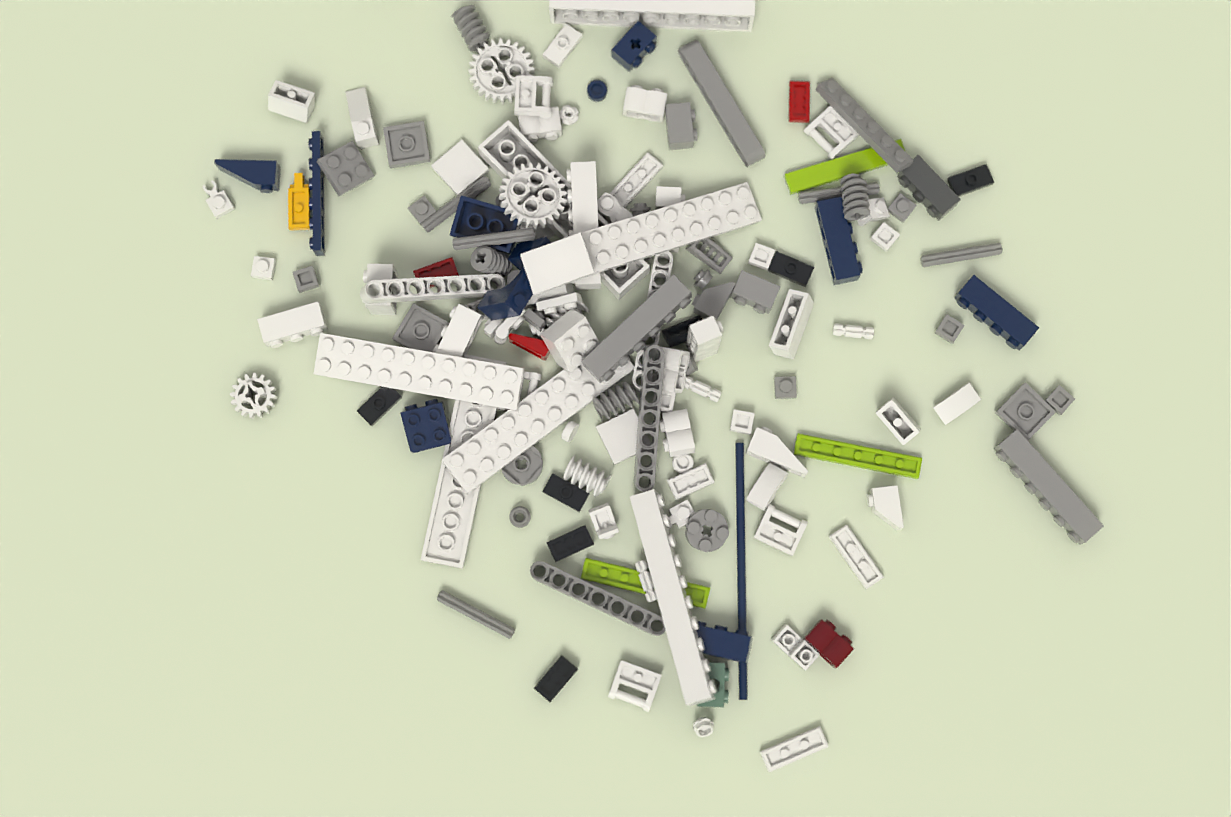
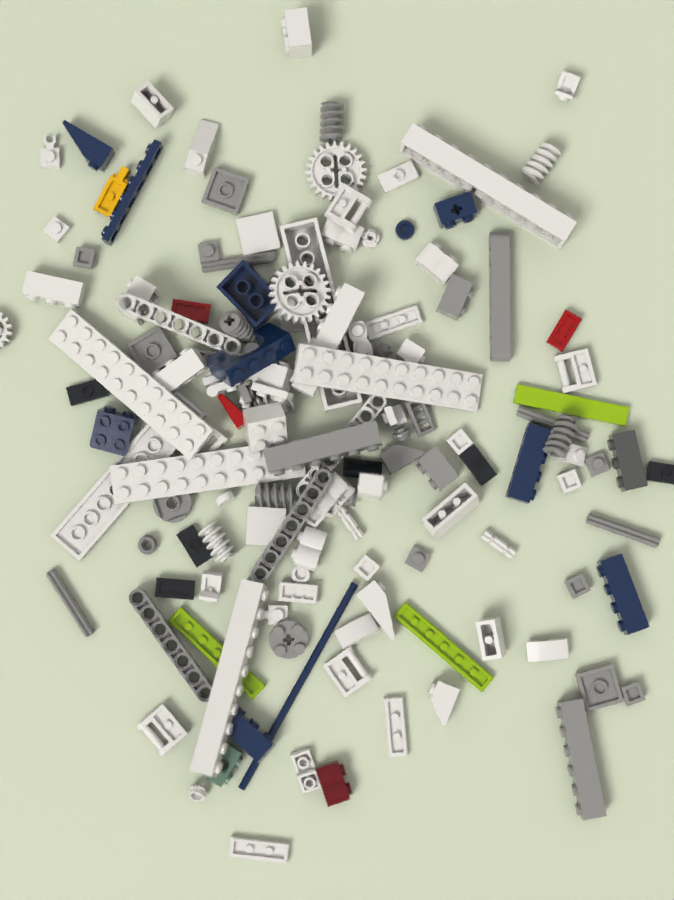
camera: 25 degrees right, 5 degrees up
(345, 168) = (165, 184): light grey plate -> none
(494, 239) = (249, 310): light grey axle -> none
(556, 678) = (104, 689): black plate -> none
(557, 264) = (284, 362): white tile -> none
(646, 580) = (217, 650): white axle -> none
(685, 265) = (393, 415): none -> white bracket
(864, 125) = (605, 380): light grey plate -> none

